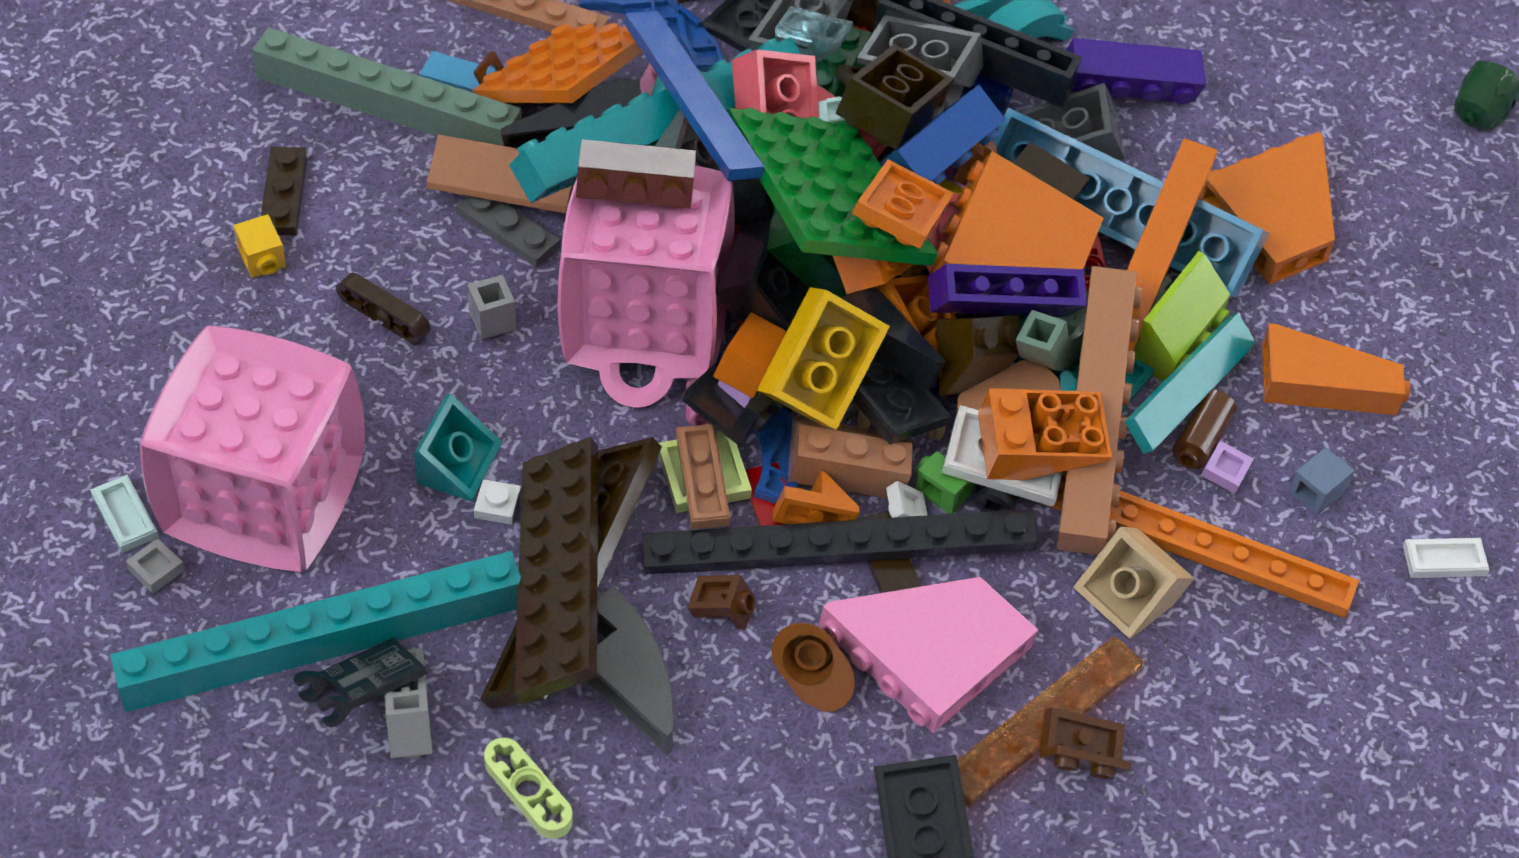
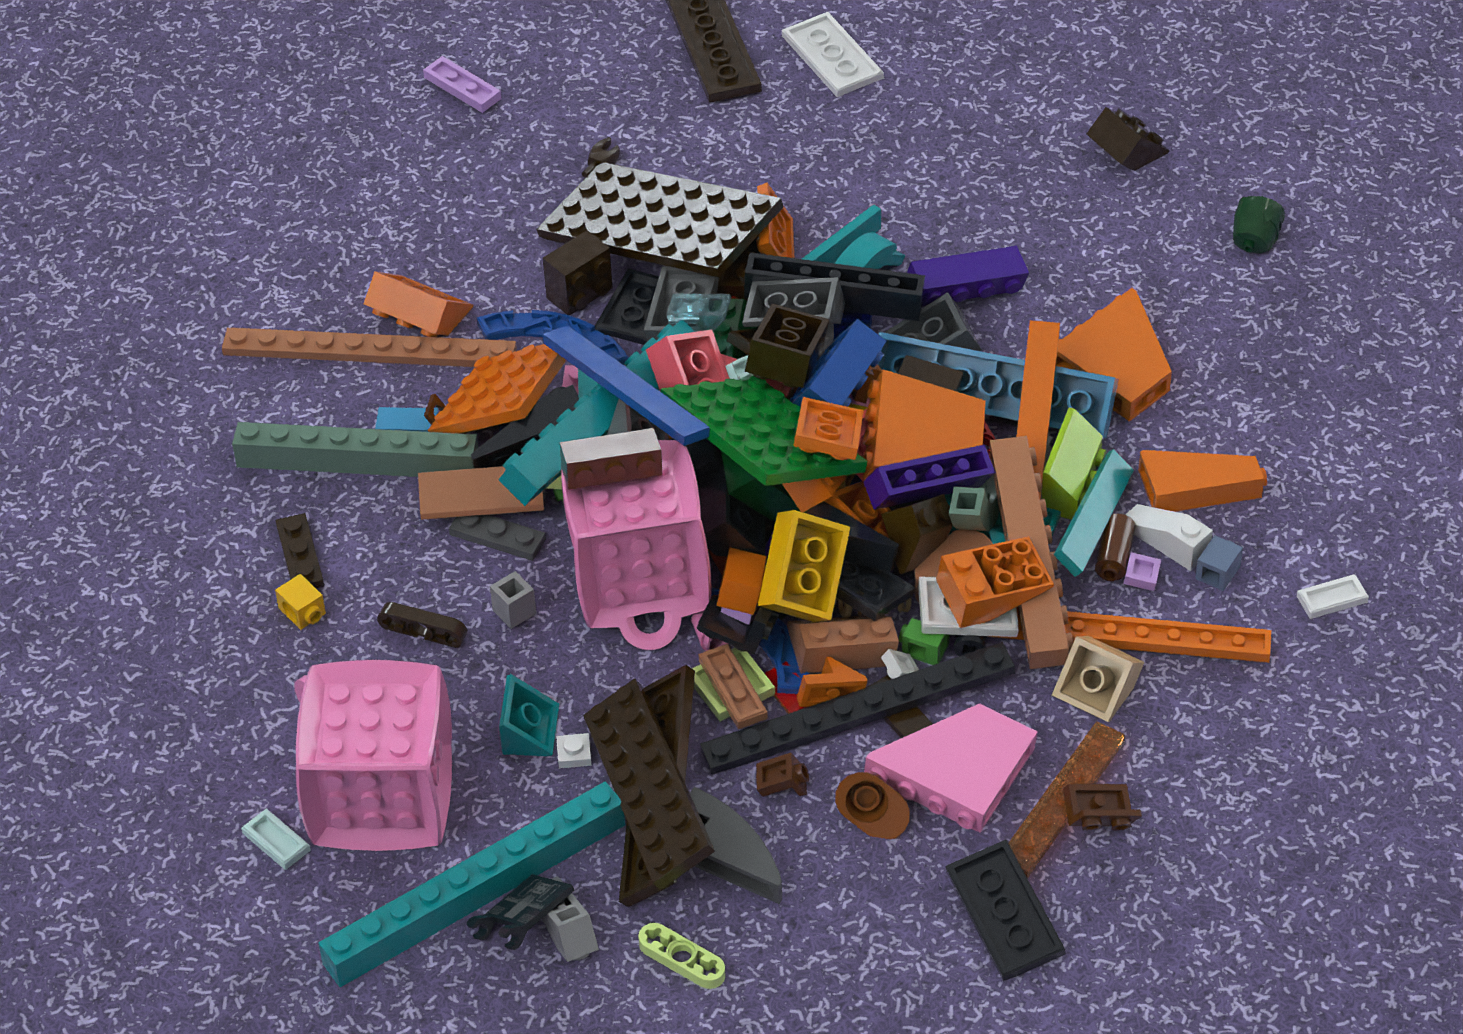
camera: 10 degrees left, 5 degrees down
(155, 566) = (319, 871): light grey plate -> none
(1276, 430) = (1171, 533): none -> white slope

